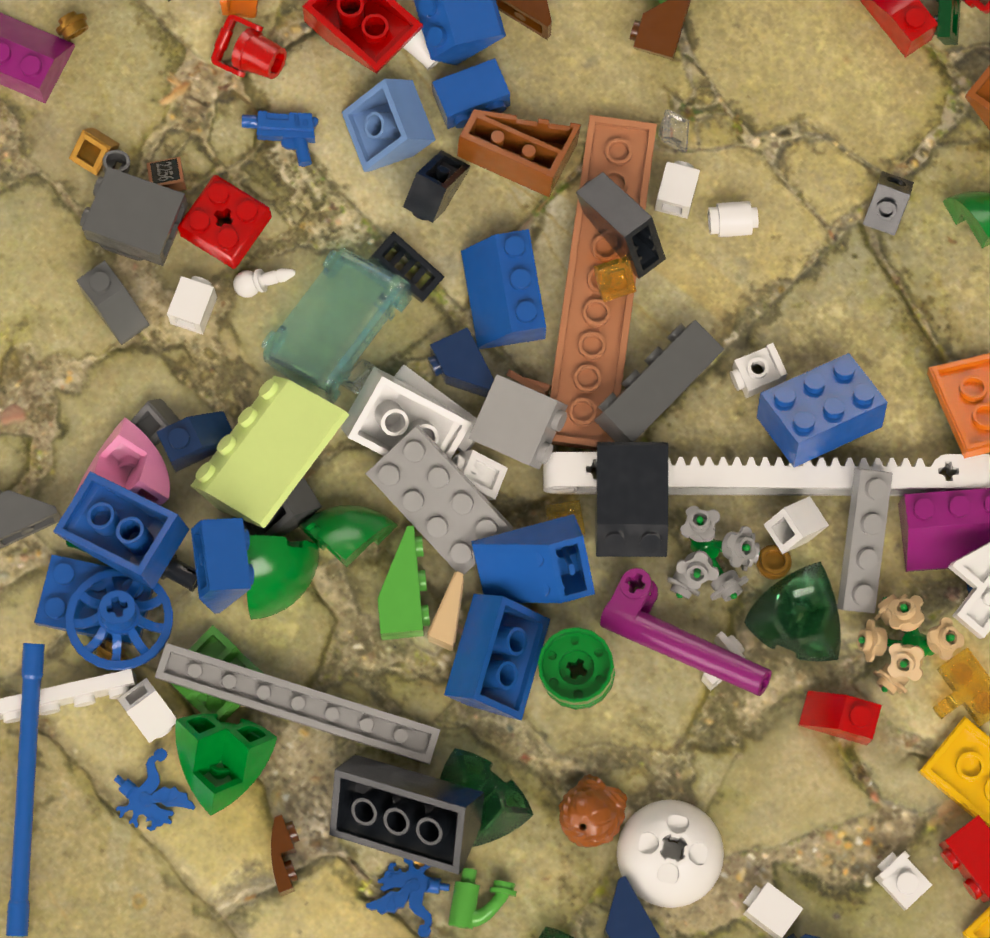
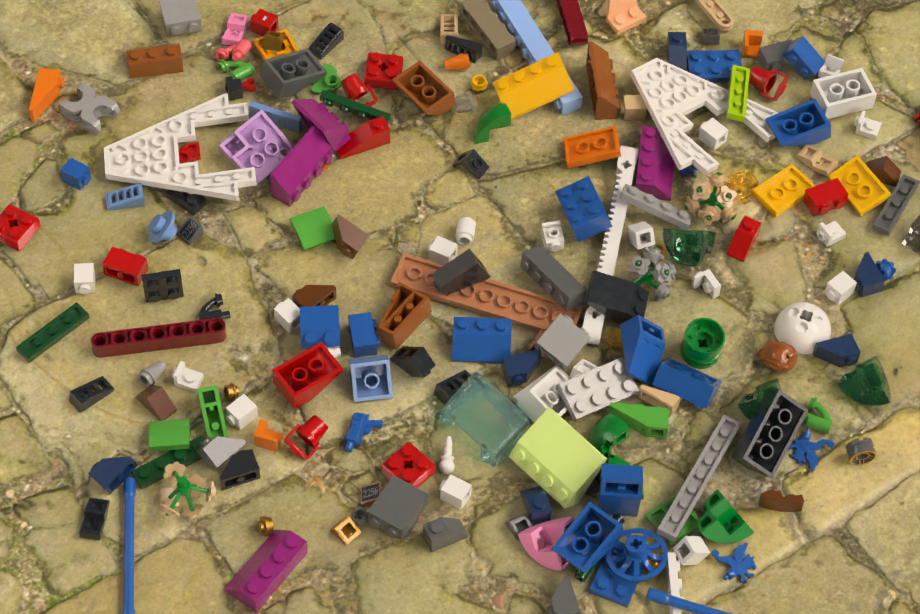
camera: 80 degrees left, 20 degrees down
(614, 279) = (491, 284): clear yellow plate -> none
(629, 617) = (677, 318): magenta axle -> none

